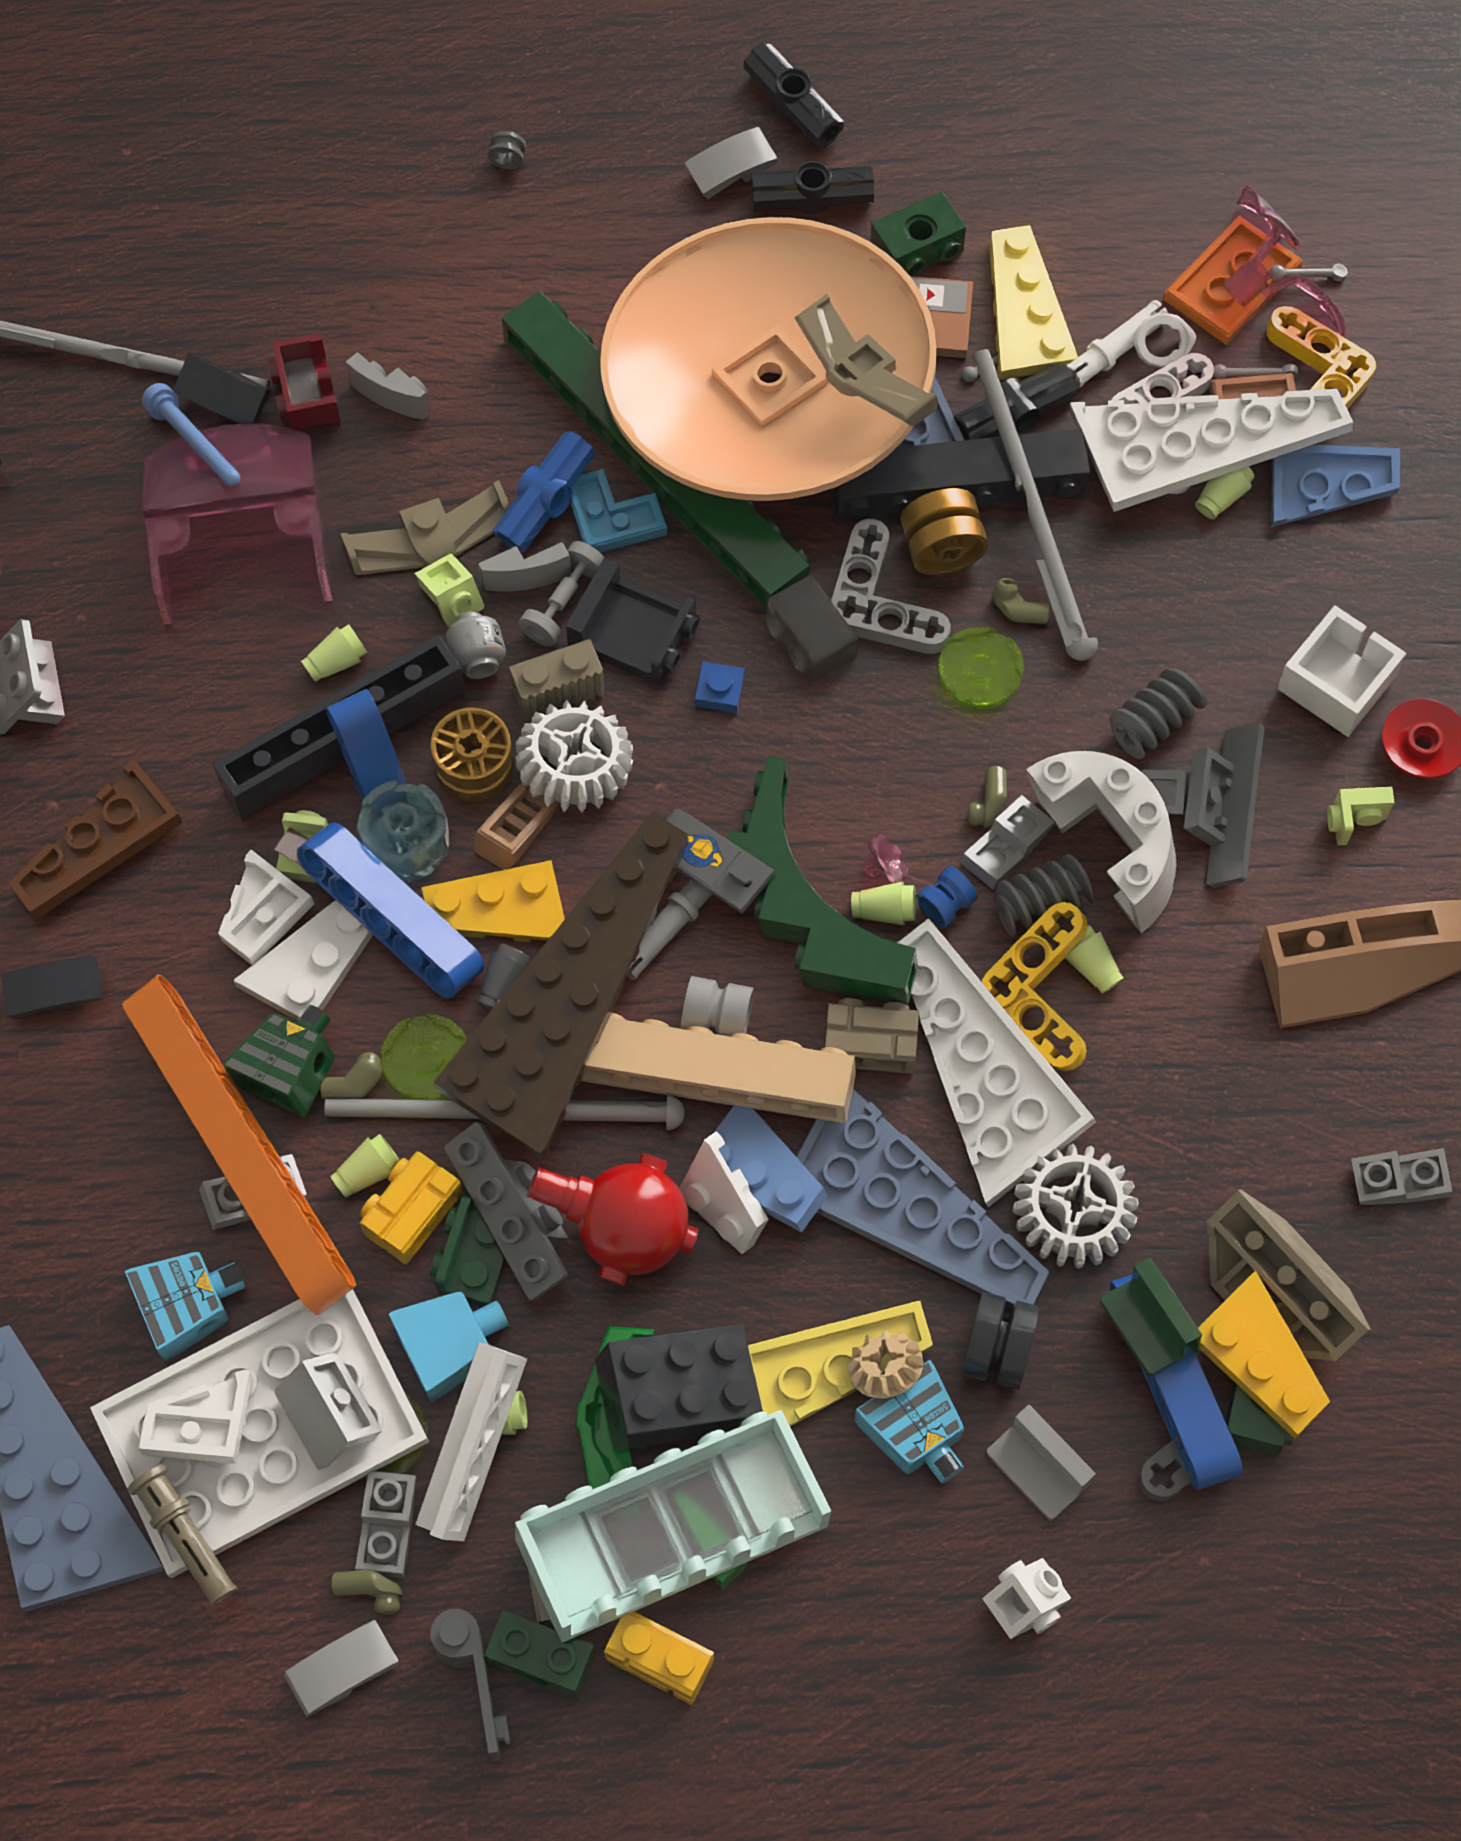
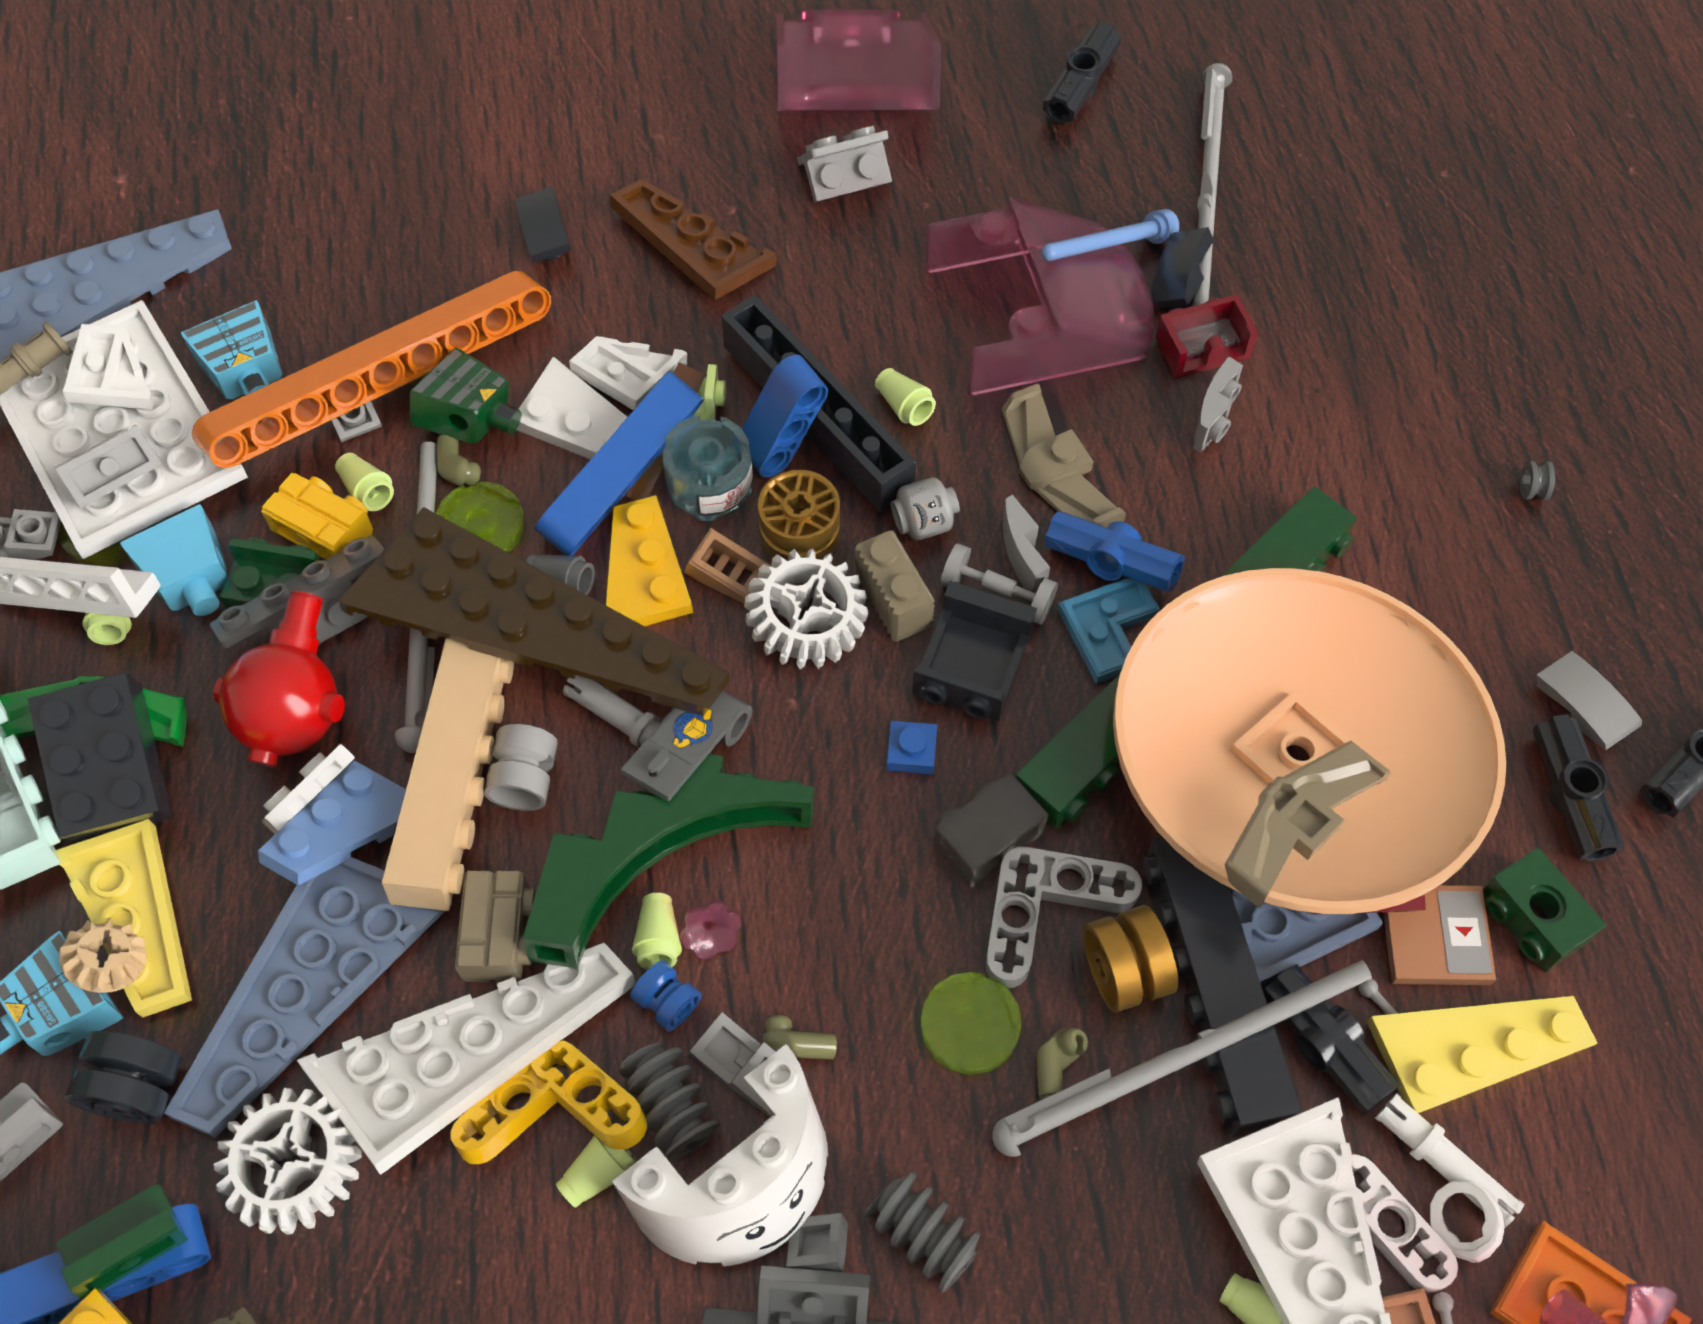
camera: 85 degrees right, 5 degrees down
(450, 588) = (990, 482): yellowish green bracket -> none

